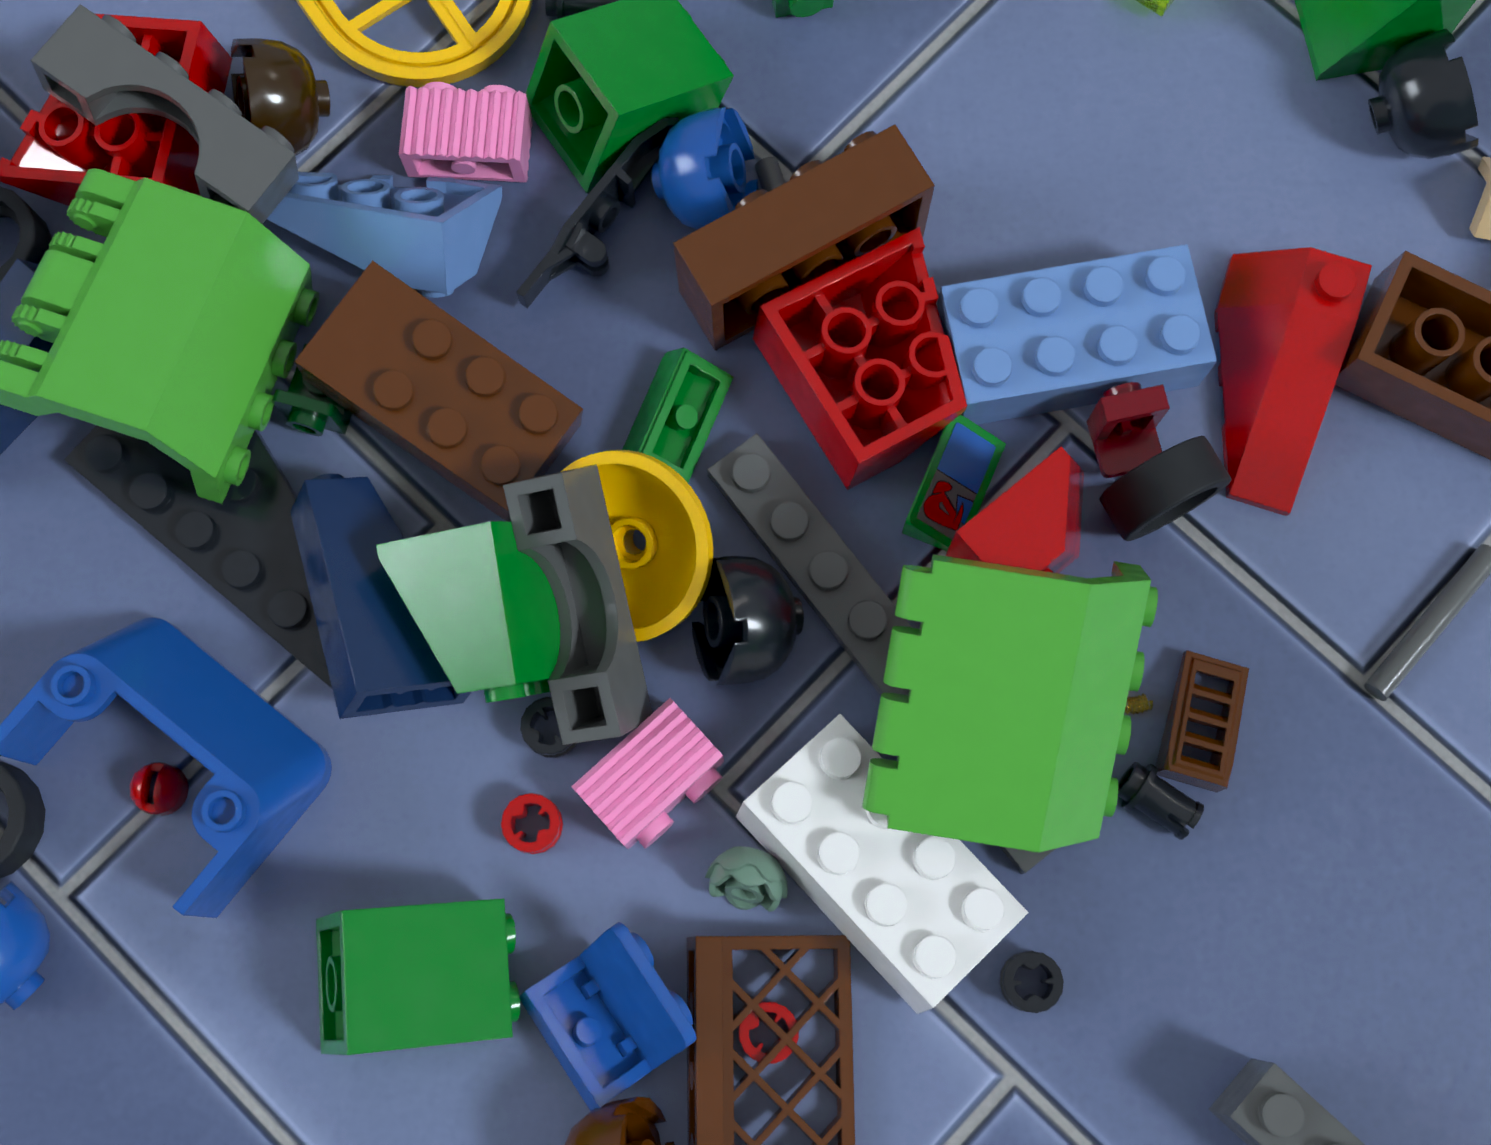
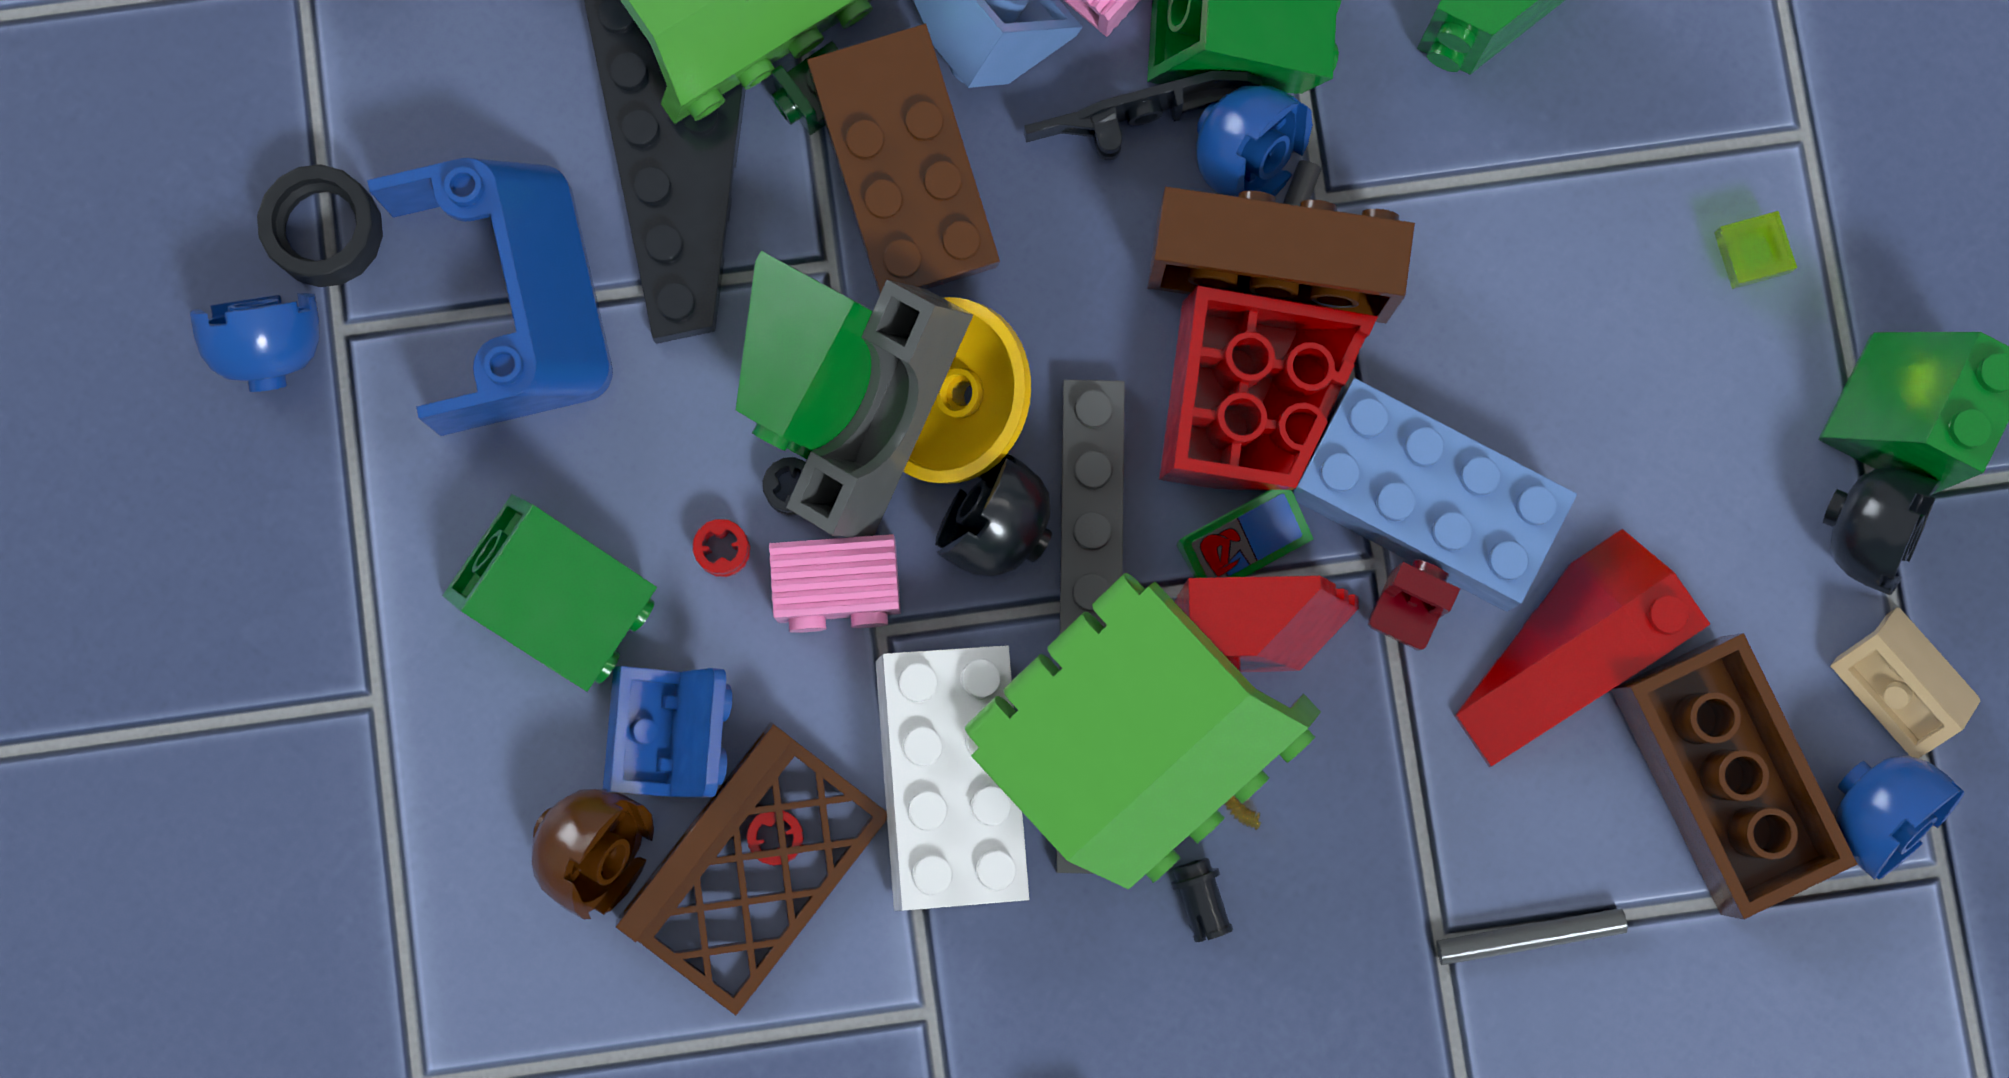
camera: 35 degrees right, 5 degrees up
(169, 789) = (476, 313): red hinge -> none
(365, 629) = (706, 309): dark blue slope -> none
(679, 410) = (1075, 318): green slope -> none
(748, 878) = (847, 713): sand green plate -> none
(1030, 961) = (985, 970): black bush -> none
(1164, 488) = (1399, 670): black tyre -> none
(1170, 763) = (1246, 899): reddish brown slope -> none

